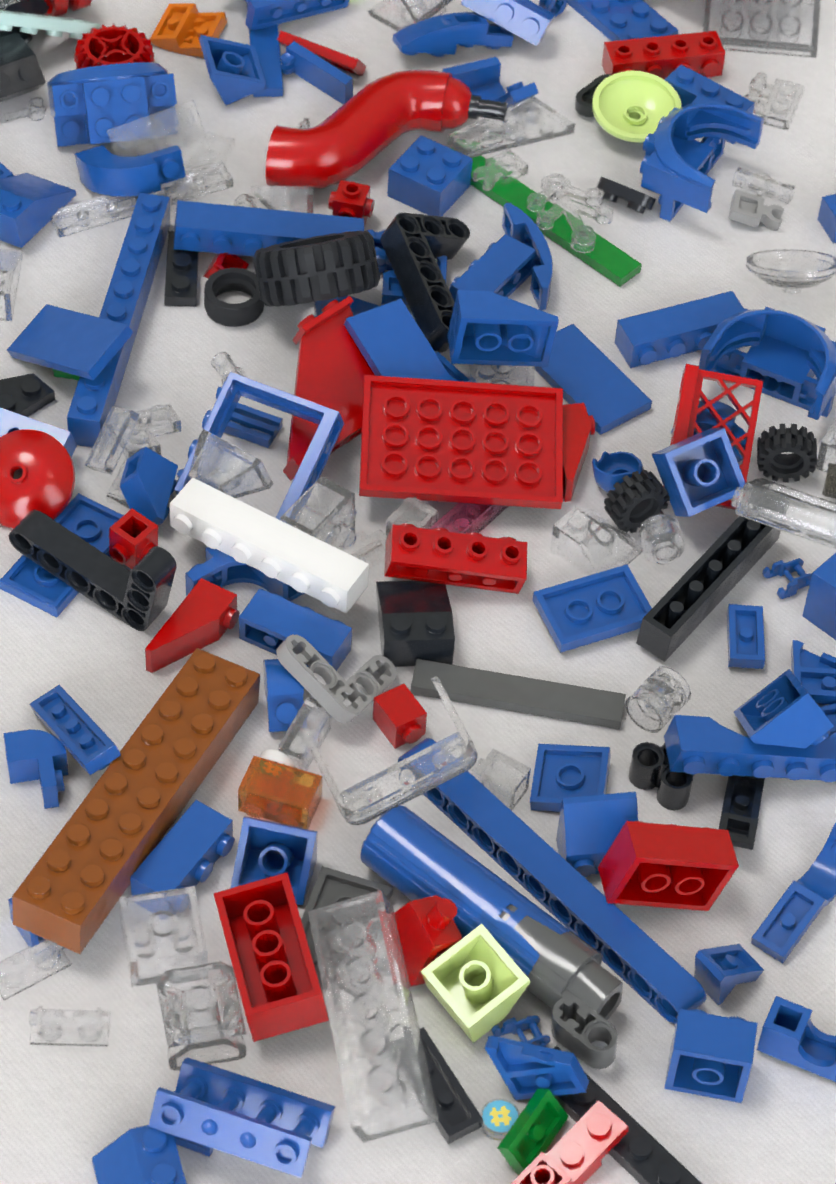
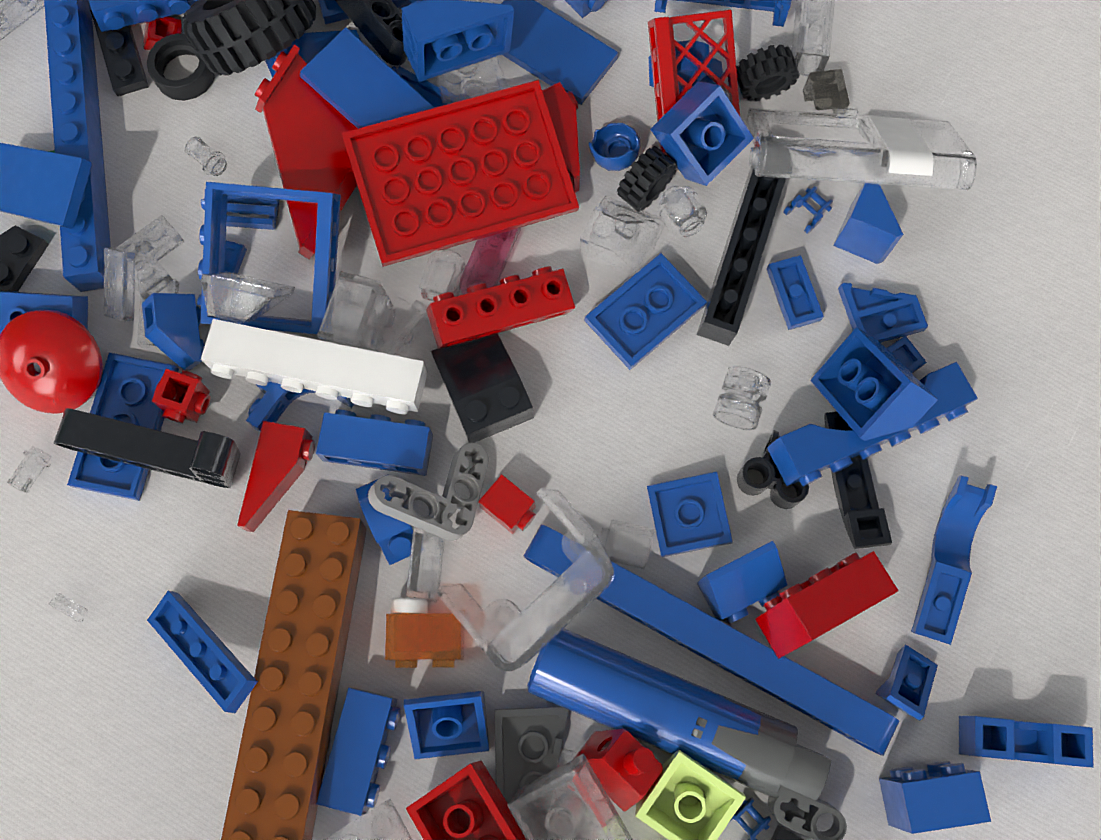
camera: 15 degrees left, 25 degrees up
(37, 757) = (174, 684): blue brick -> none
(520, 694) = (607, 432): dark grey tile -> none

